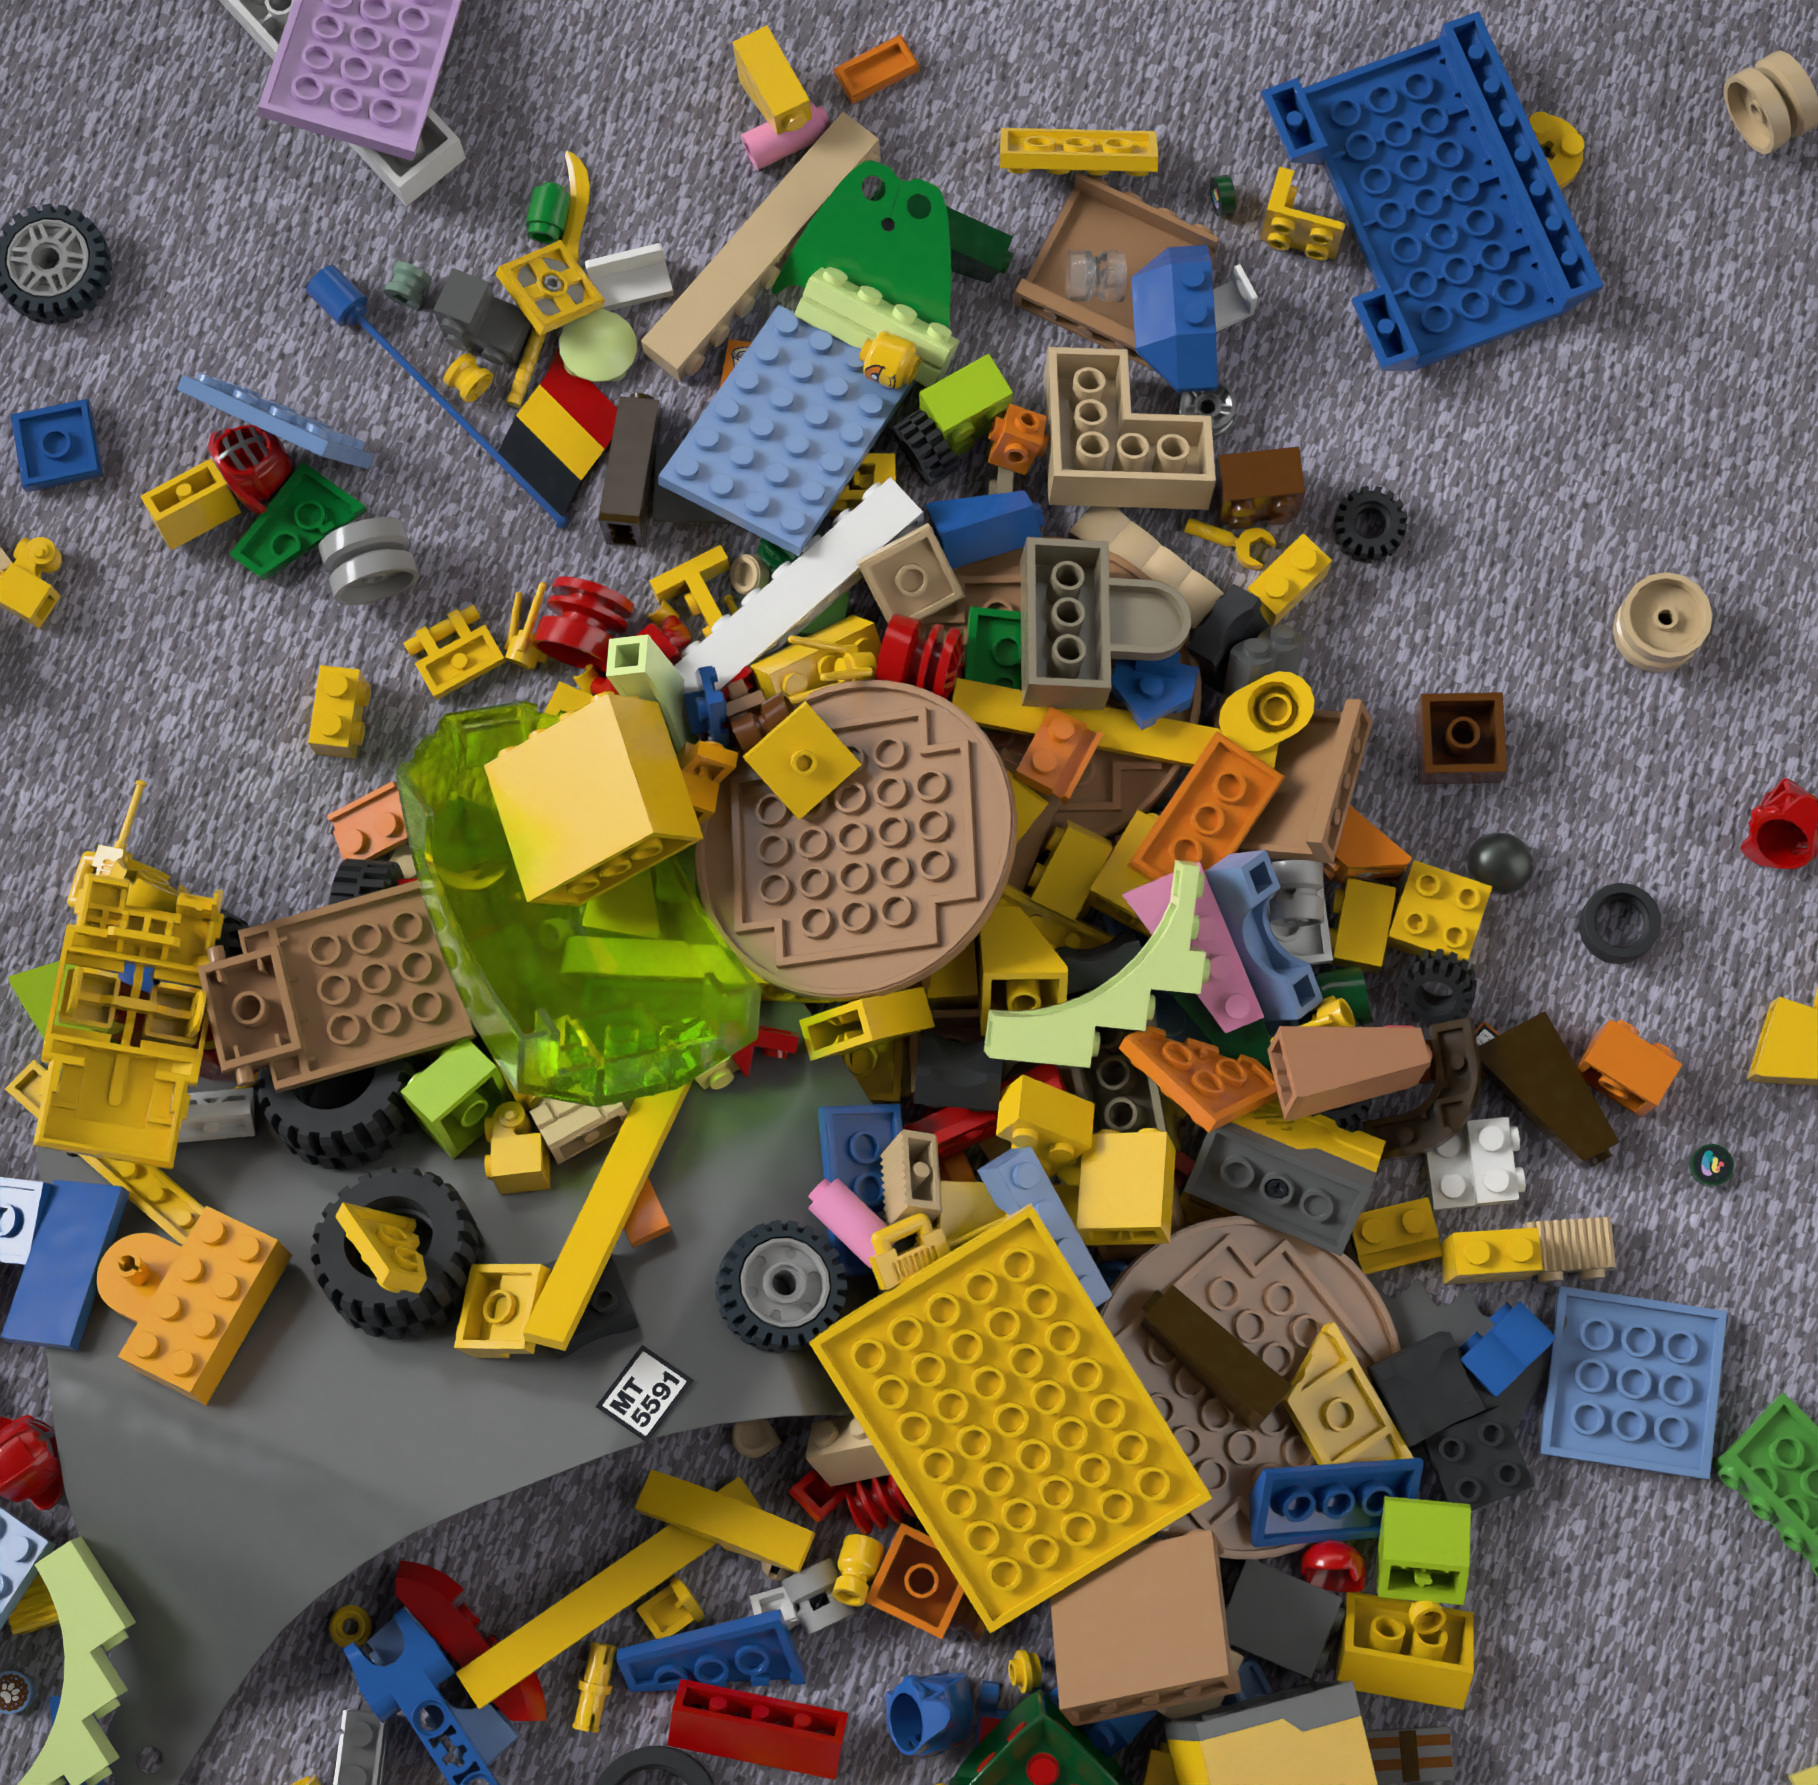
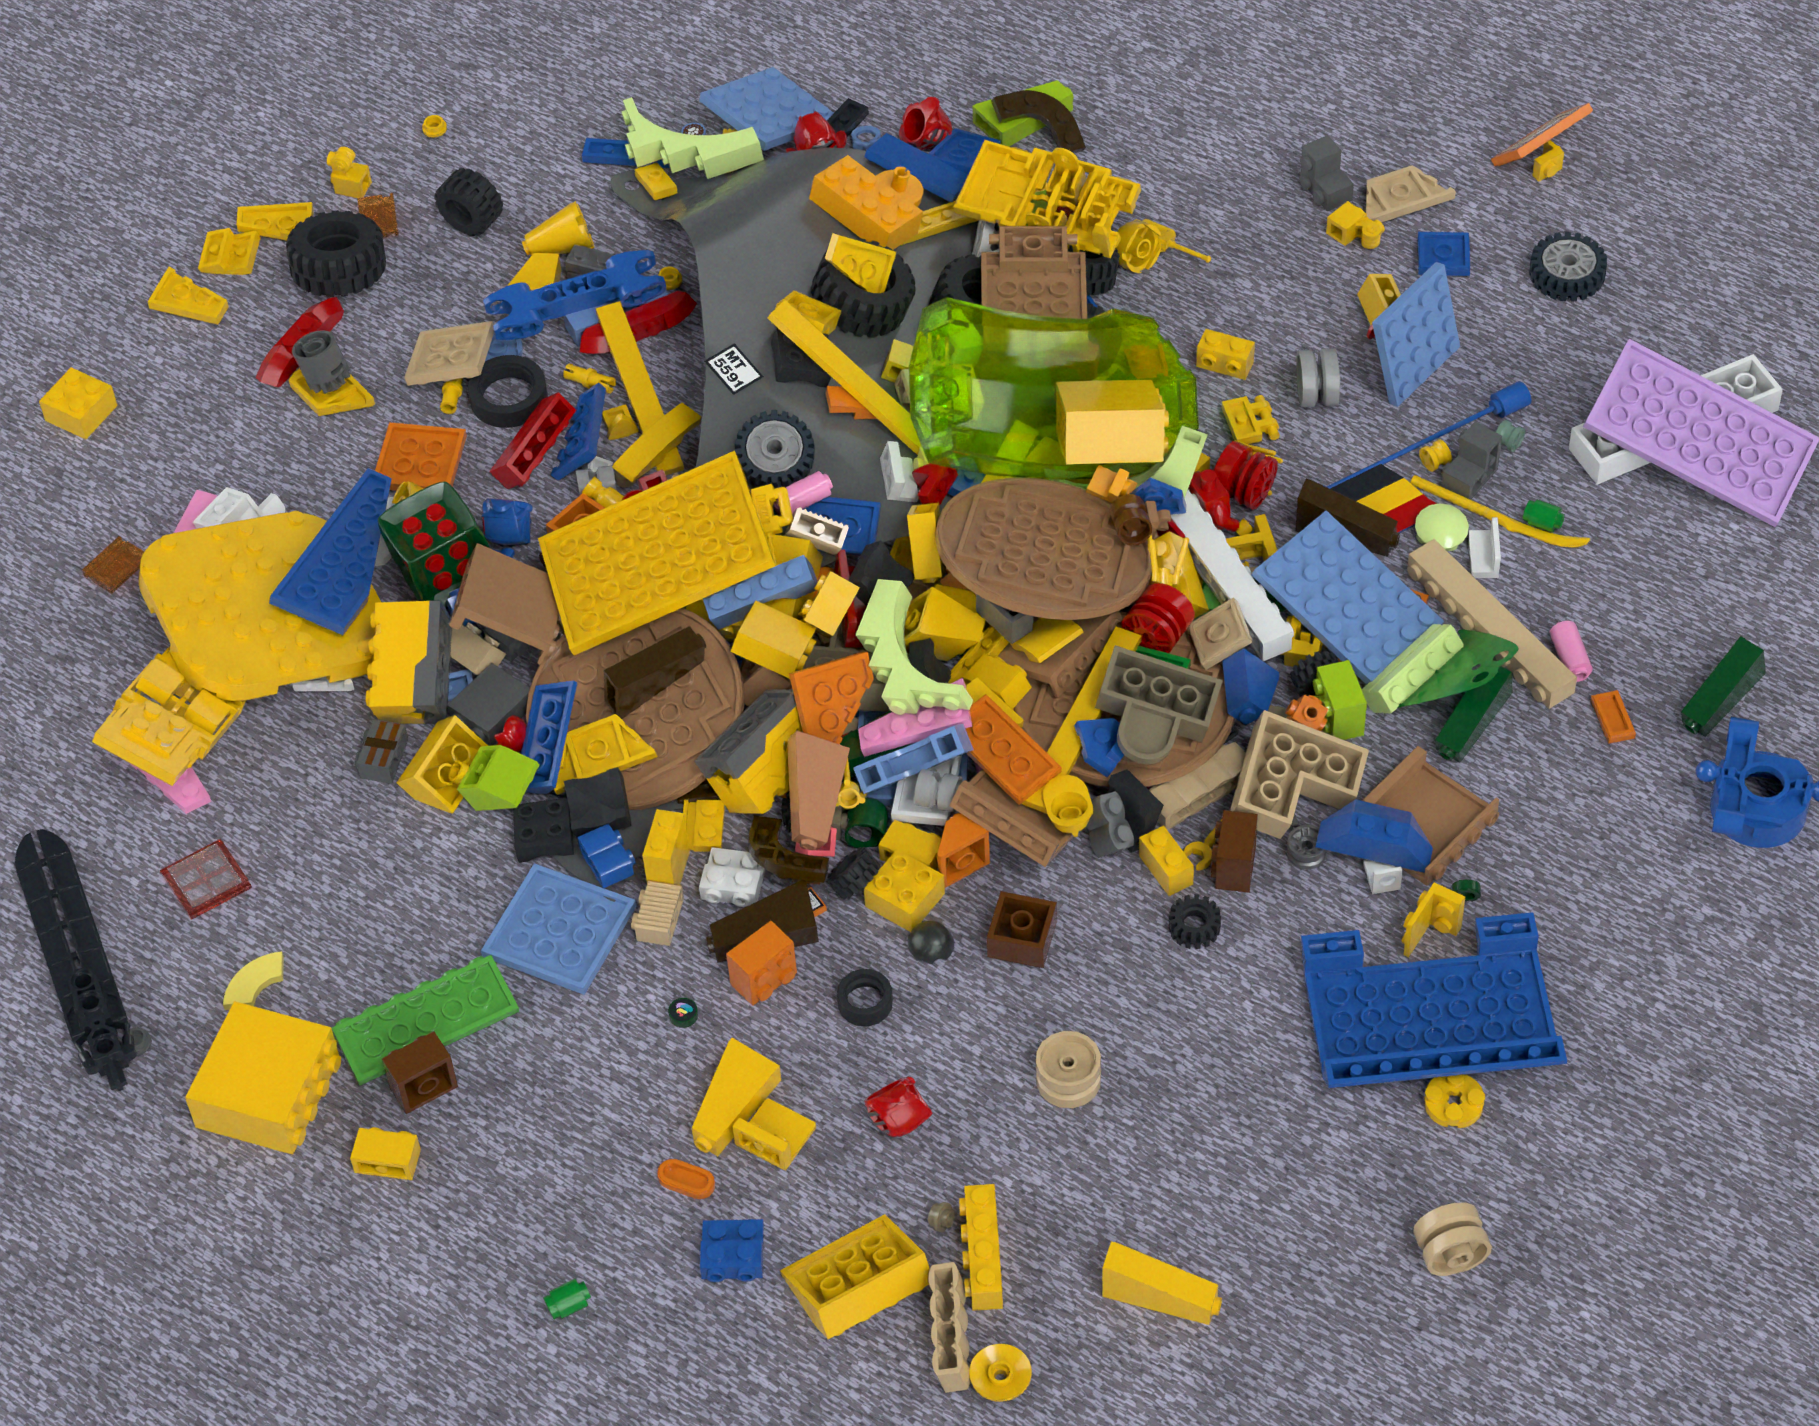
camera: 105 degrees right, 25 degrees down
(144, 1716) = (656, 181): none -> yellow plate
(295, 522) = (1357, 356): green wing -> none
(550, 287) = (1483, 497): yellow piece -> none
(747, 1102) = (898, 474): none -> white panel
(771, 81) = (1604, 636): yellow slope -> none
(802, 760) = (1101, 522): yellow plate -> none
(890, 360) = (1380, 657): yellow head -> none
(1057, 755) = (1069, 672): orange plate -> none
(1078, 150) = (1517, 806): yellow plate -> none
(1095, 275) = (1419, 793): clear wheel -> none

